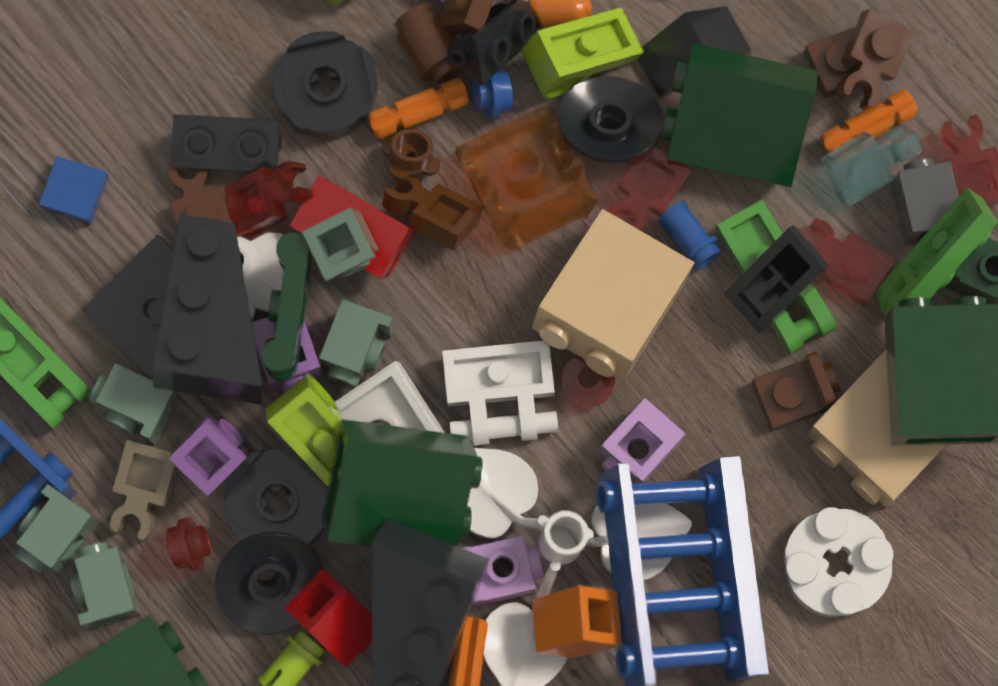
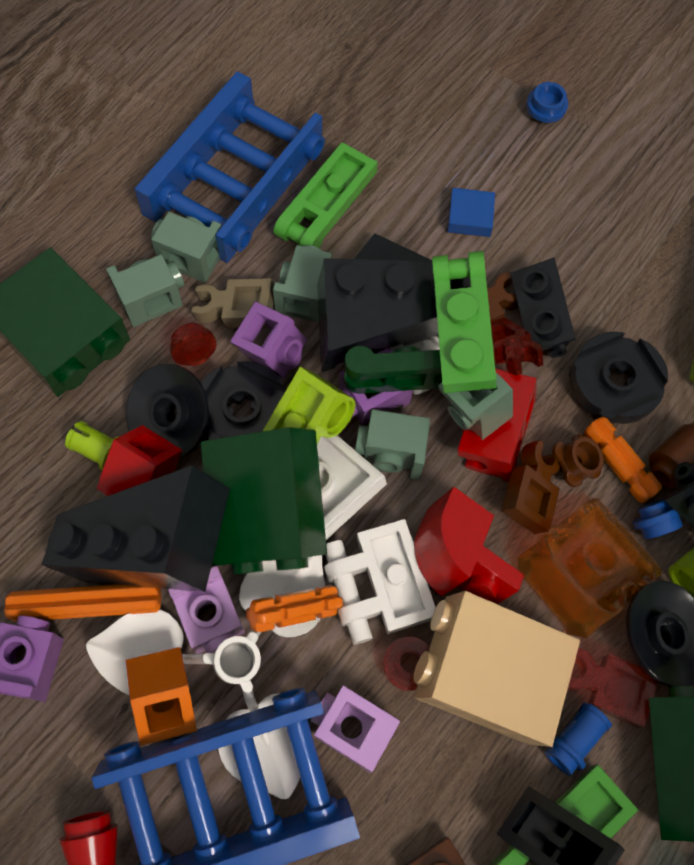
camera: 75 degrees right, 10 degrees down
(266, 237) = (464, 324): none -> bright green plate
(485, 309) = (453, 552): none -> red brick
(516, 479) = (293, 608): none -> orange axle

